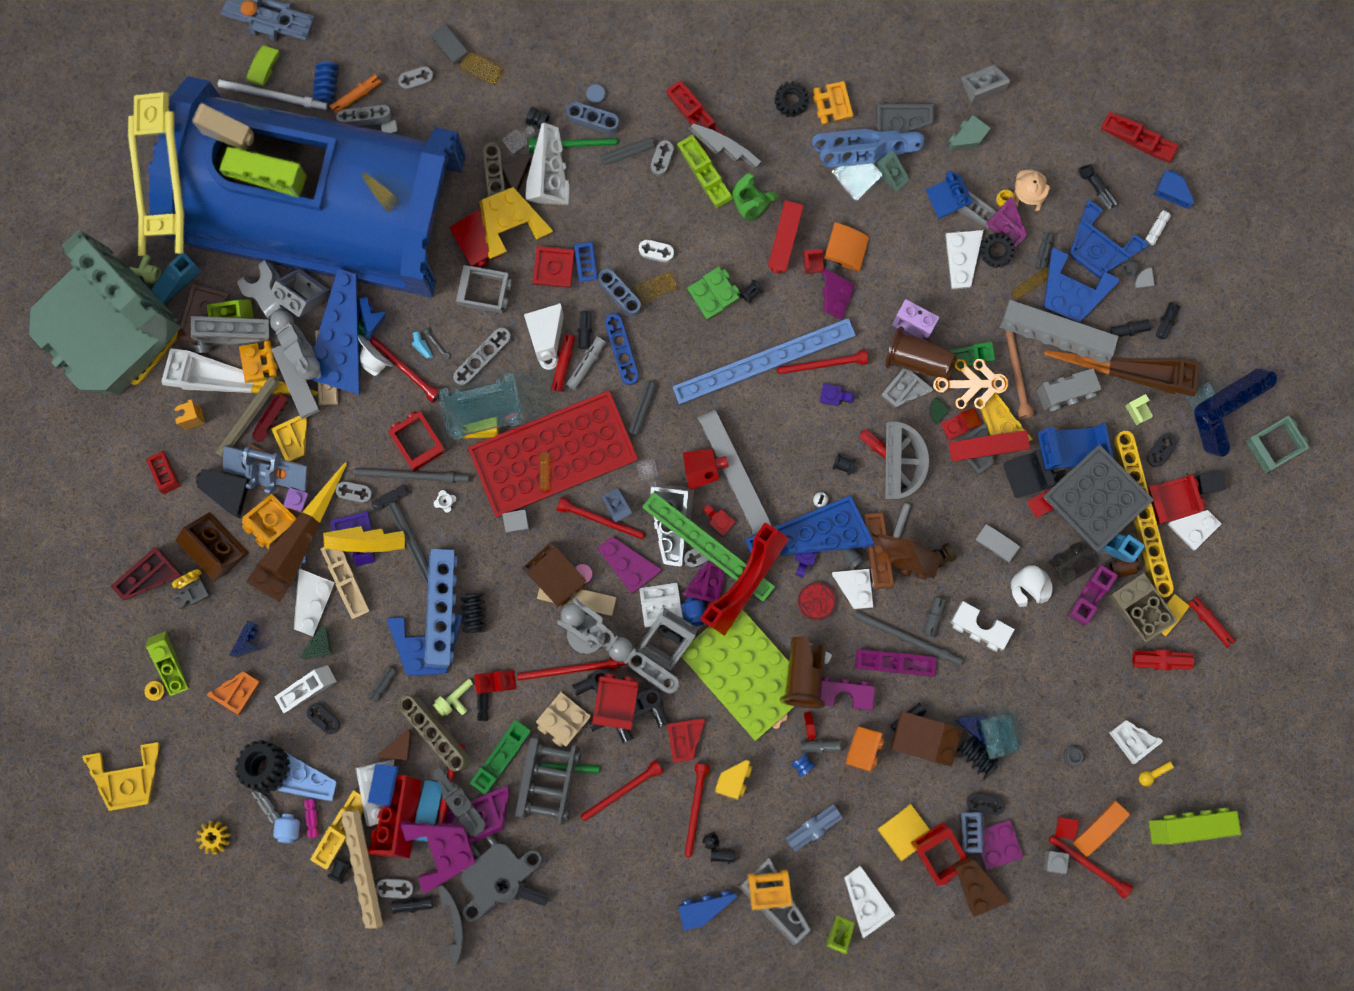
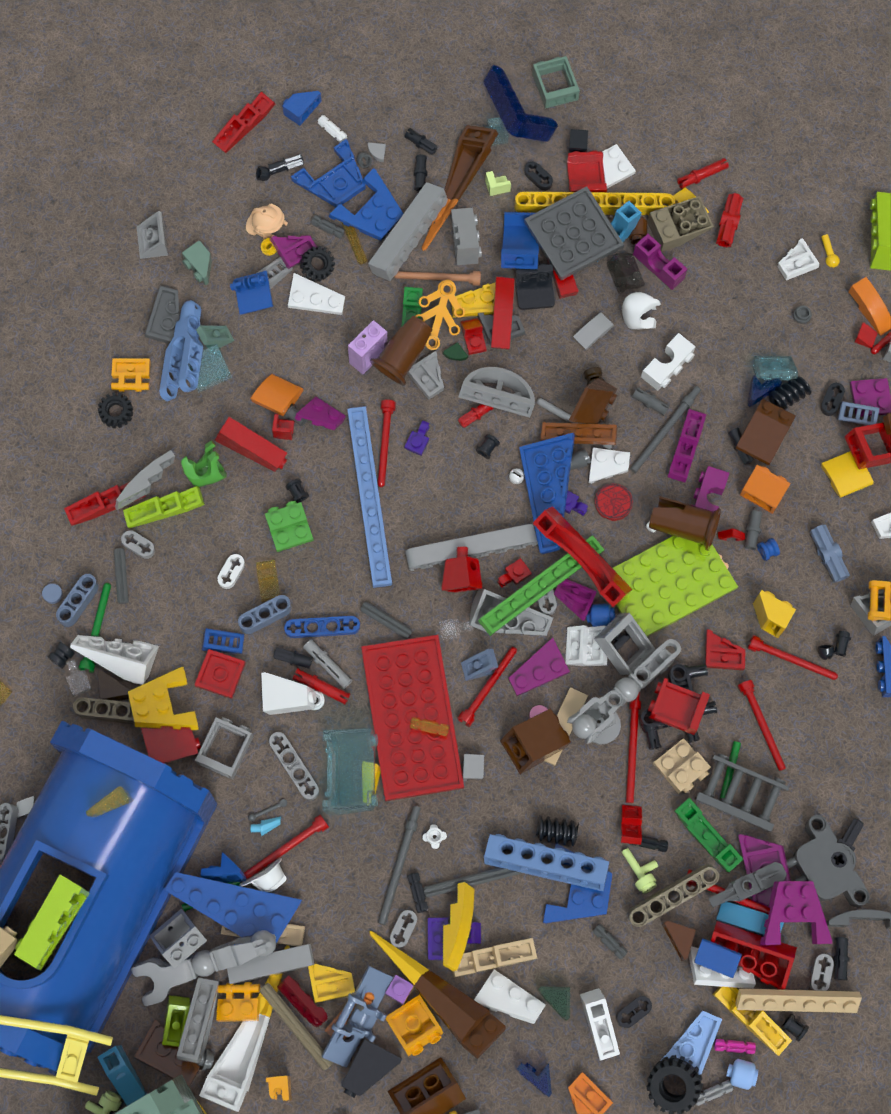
camera: 80 degrees left, 10 degrees down
(426, 457) = (341, 850): red window -> none

